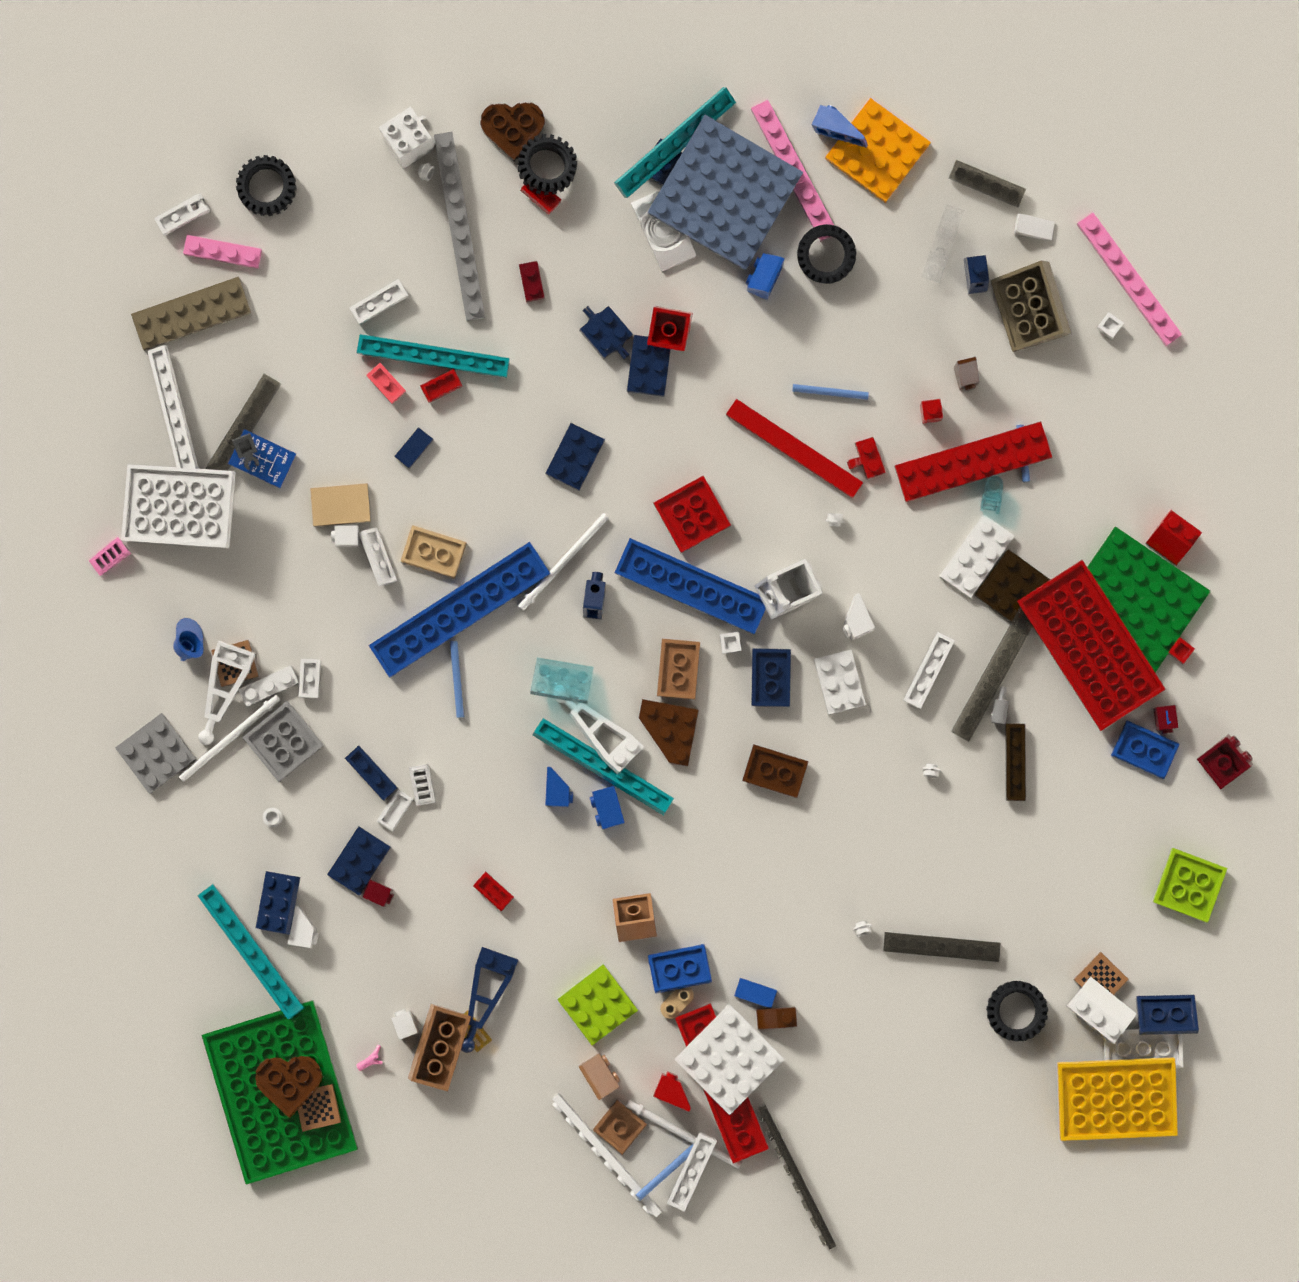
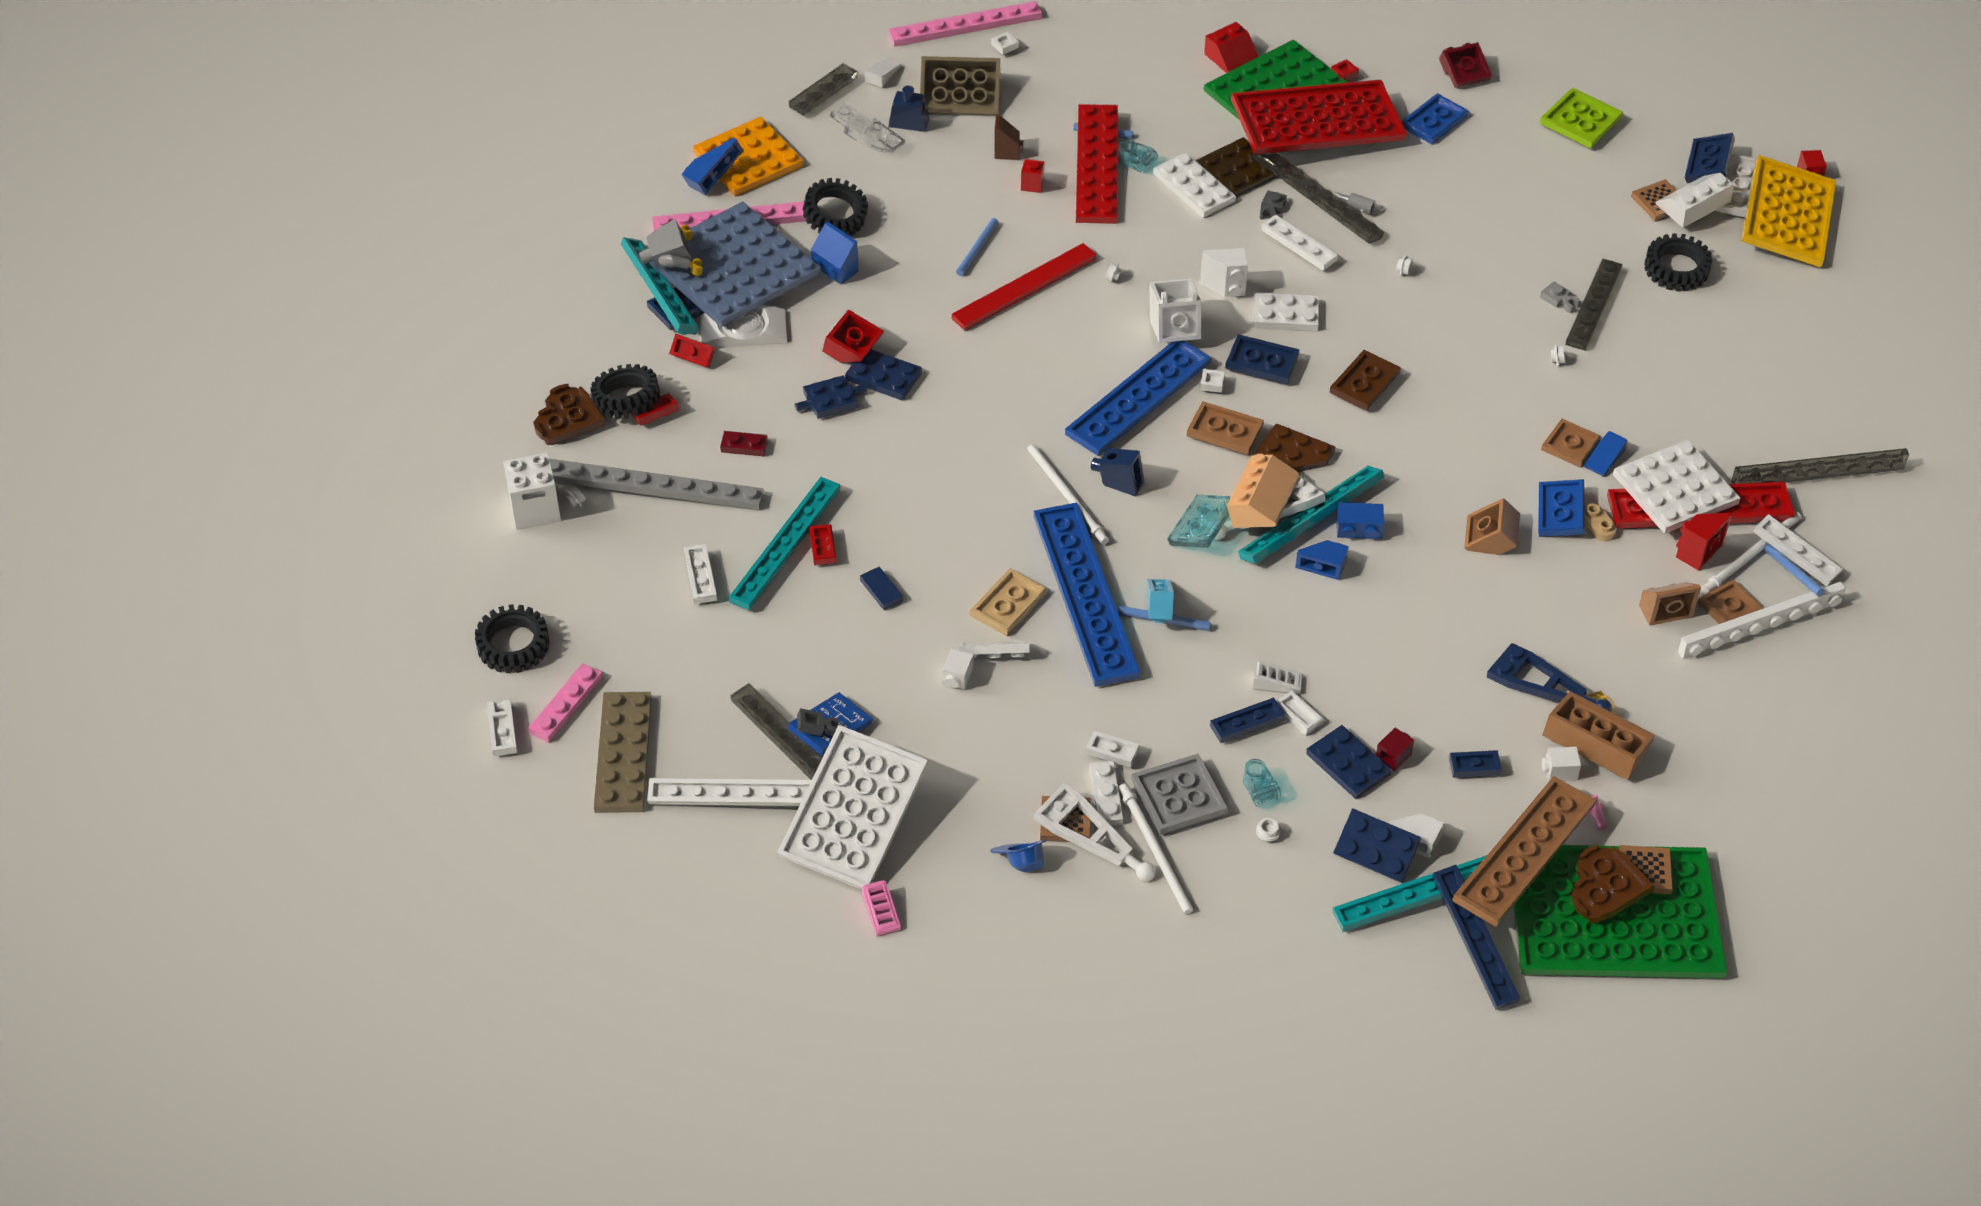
camera: 75 degrees left, 35 degrees down
(155, 753) = (1147, 929): light grey plate -> none
(214, 994) = (1477, 941): none -> dark blue plate
(293, 1015) = (1524, 851): none -> medium nougat plate
(310, 801) = (1262, 785): none -> clear light blue piece
(340, 505) = (917, 670): tan tile -> none
(385, 958) = (1475, 763): none -> dark blue plate
(386, 383) = (796, 591): coral plate -> none
(467, 670) = (1160, 600): none -> medium azure slope
(493, 891) = (1424, 645): red plate -> none
(575, 456) = (954, 456): dark blue plate -> none
(597, 1004) = (1583, 589): lime plate -> none
(601, 721) = (1261, 492): none -> light nougat slope
(616, 202) = (692, 350): none -> red plate
(692, 514) = (1060, 377): red plate -> none
(704, 136) = (670, 248): none -> light grey torso
(762, 961) = (1571, 442): none -> medium nougat tile
(776, 1018) = (1638, 438): reddish brown slope -> none
(868, 458) = (1059, 236): red plate -> none
(941, 912) = (1558, 295): none -> light grey plate
(976, 633) = (1272, 203): none -> dark grey plate
(1015, 762) = (1417, 204): dark brown plate -> none
(1166, 719) = (1409, 94): dark red brick -> none
(1191, 1110) = (1812, 161): none -> red brick

